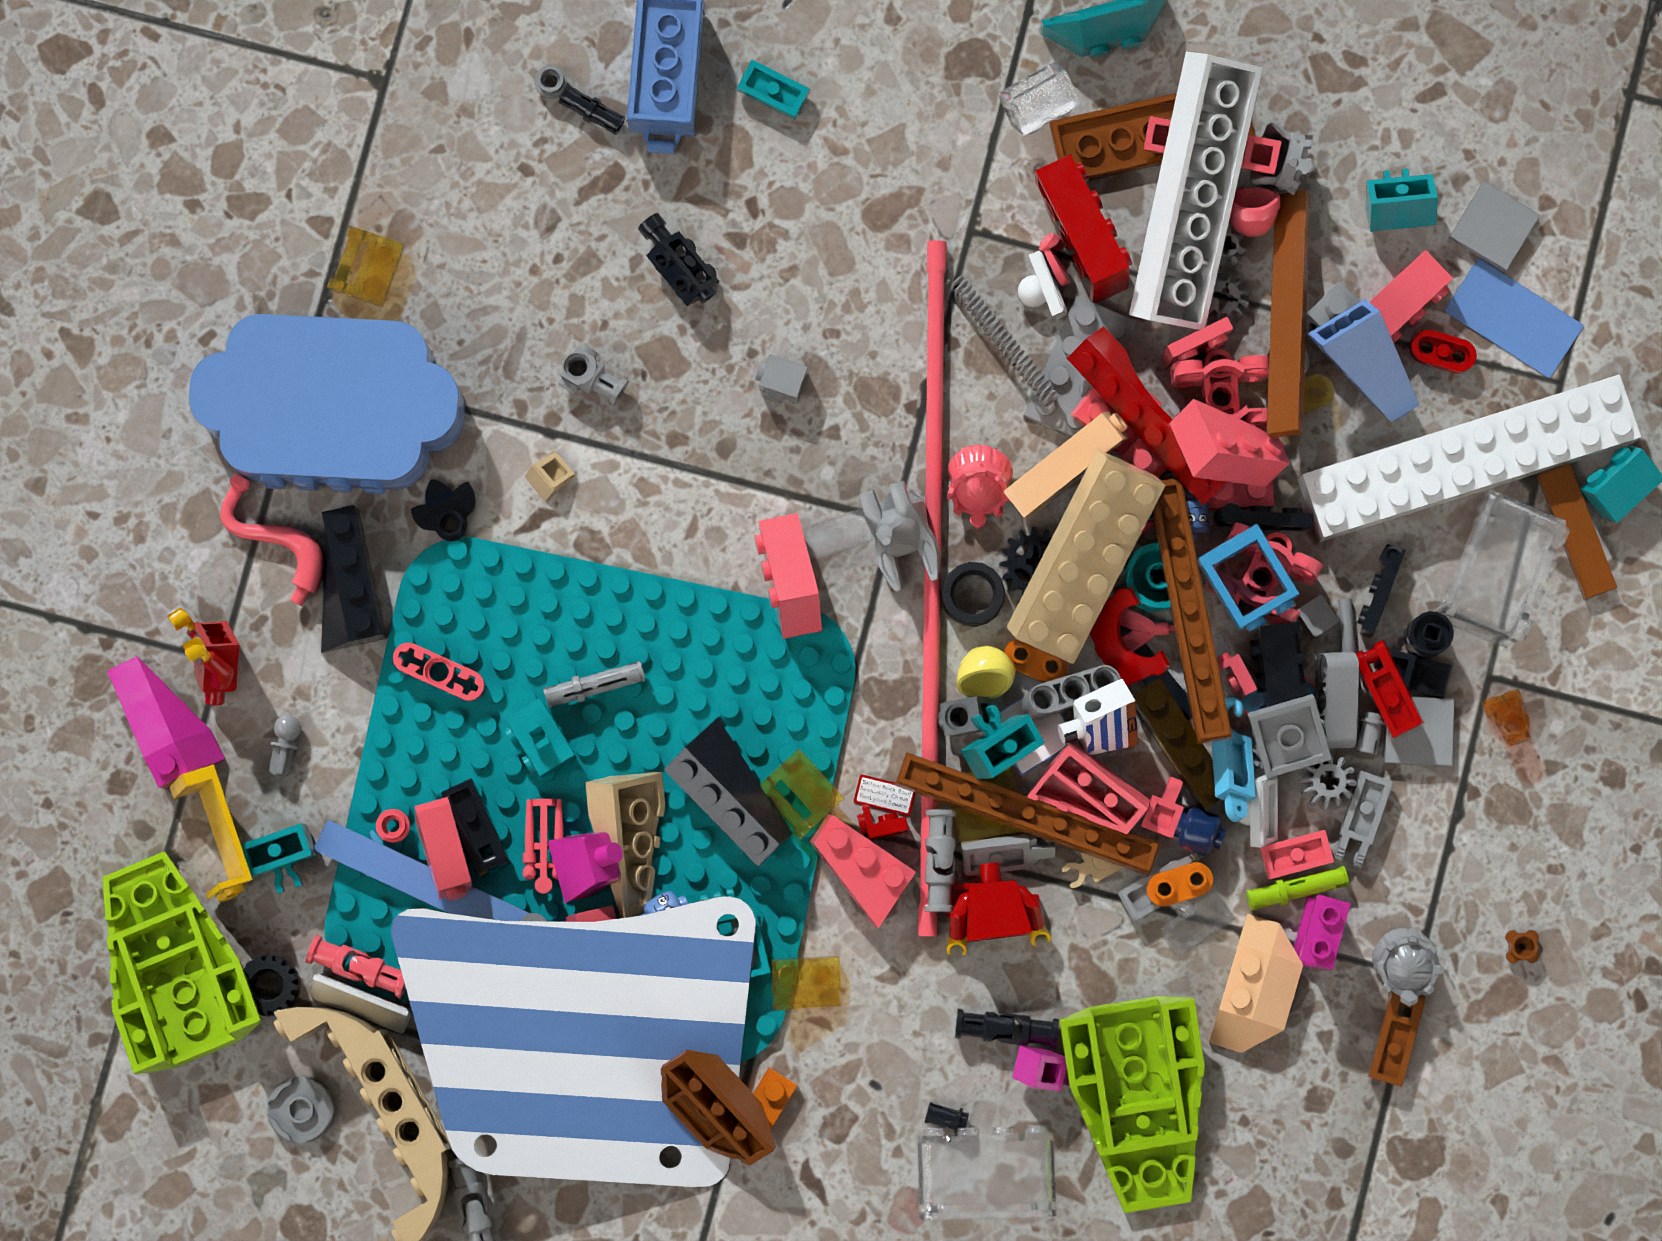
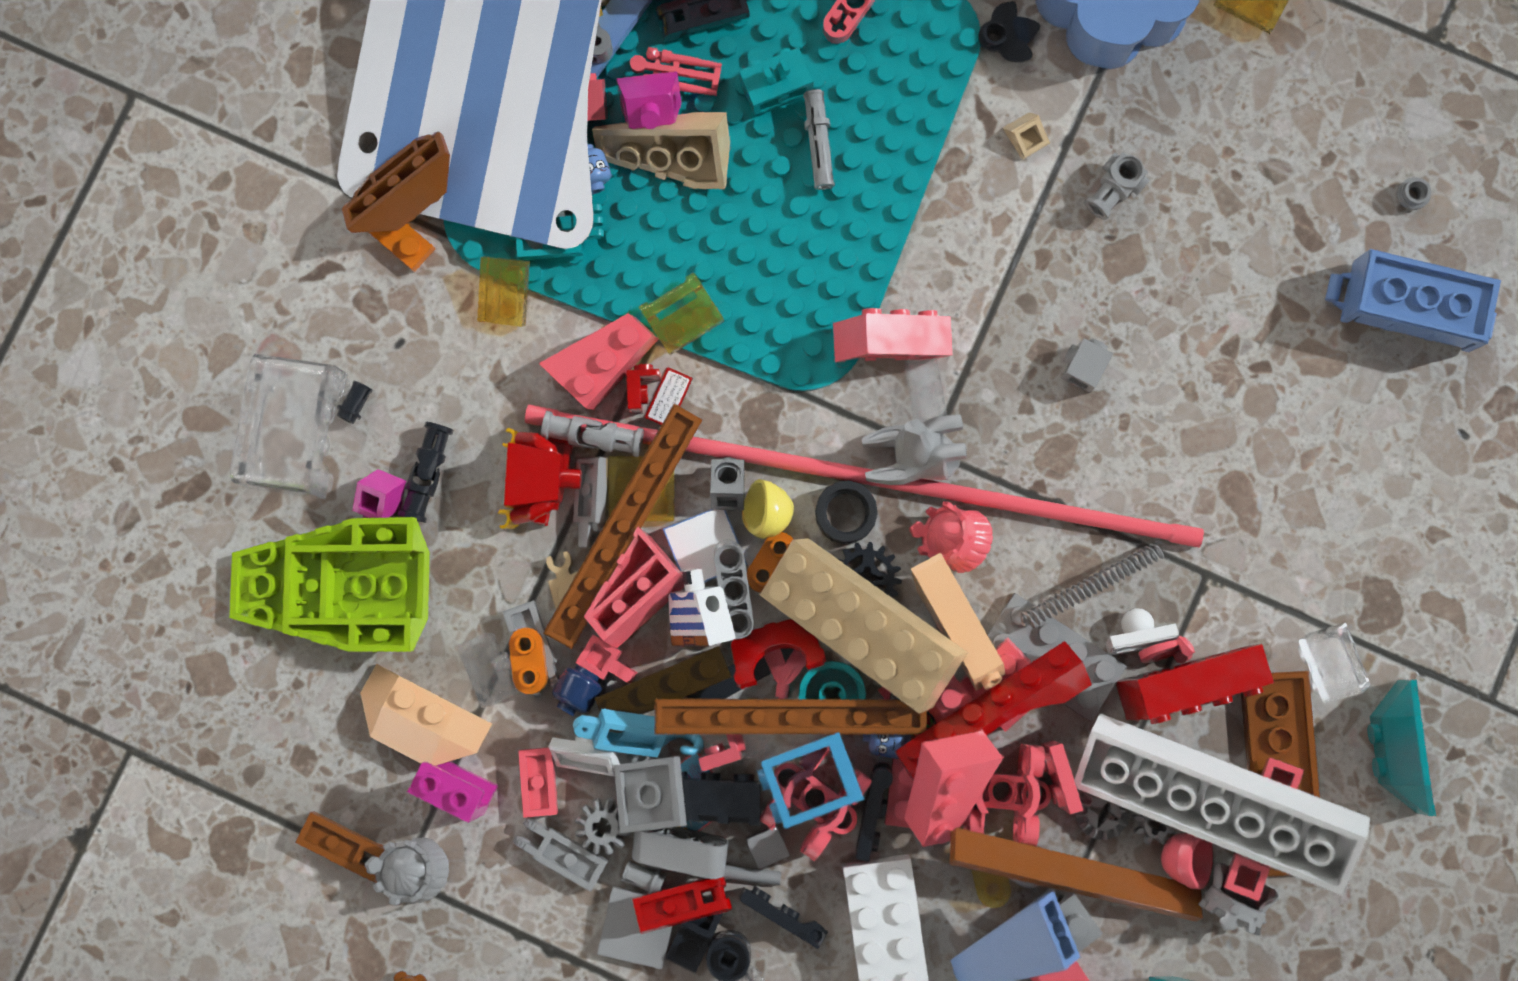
camera: 105 degrees right, 0 degrees up
(592, 109) = (1381, 226): black pin -> none
(679, 268) = (1217, 284): black brick -> none
(729, 792) = (691, 245): black wedge -> none
(773, 89) = (1378, 404): teal plate -> none
(1001, 743) = (691, 511): teal brick -> none
(1283, 892) = (504, 762): lime pin -> none

